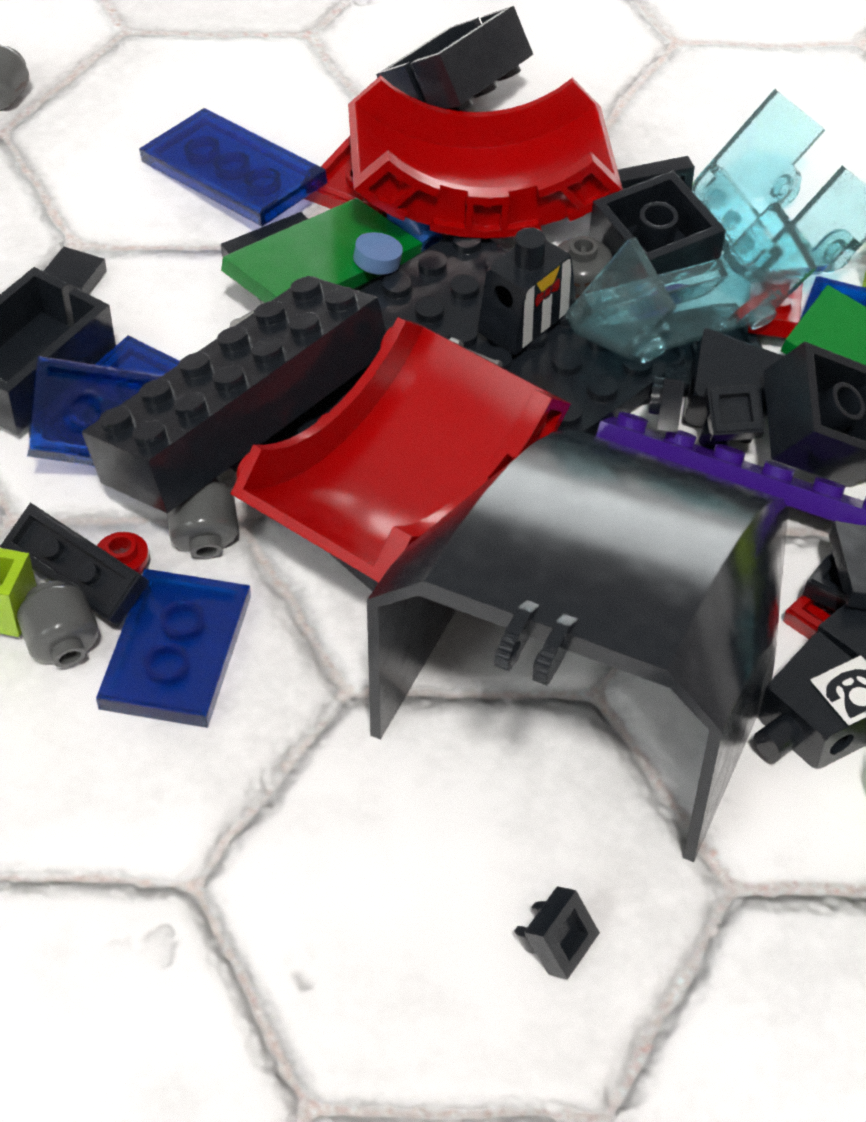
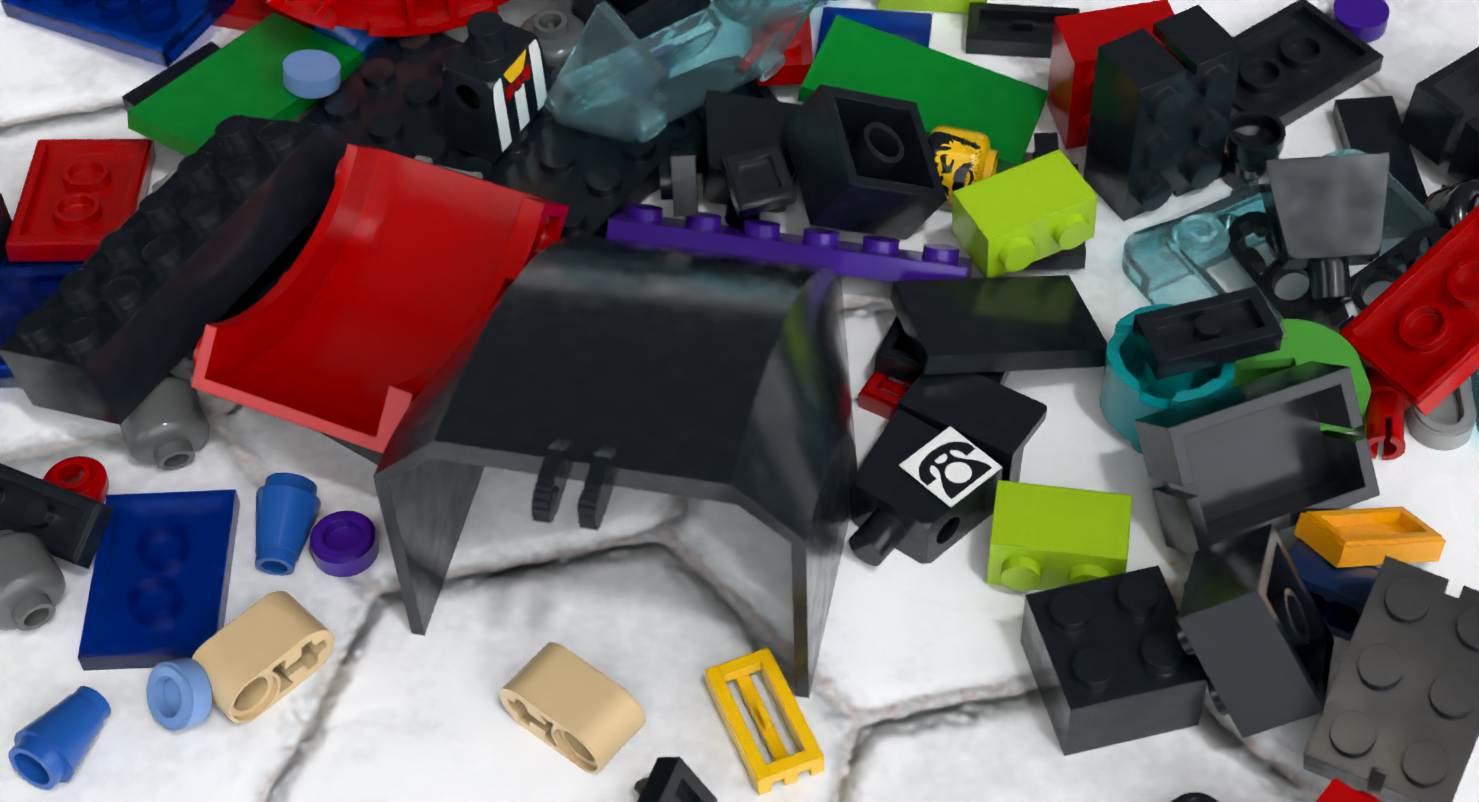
camera: 10 degrees left, 0 degrees up
(67, 762) = (58, 739): none -> blue cone
(170, 319) = (78, 196): none -> red tile
(171, 745) = (179, 693): none -> medium blue tile
(243, 729) = (263, 655): none -> tan beam
(283, 620) = (283, 521): none -> blue cone
(329, 649) = (344, 543): none -> dark purple tile
(493, 827) = (572, 707): none -> tan beam
(661, 916) = (783, 766): none -> yellow tile

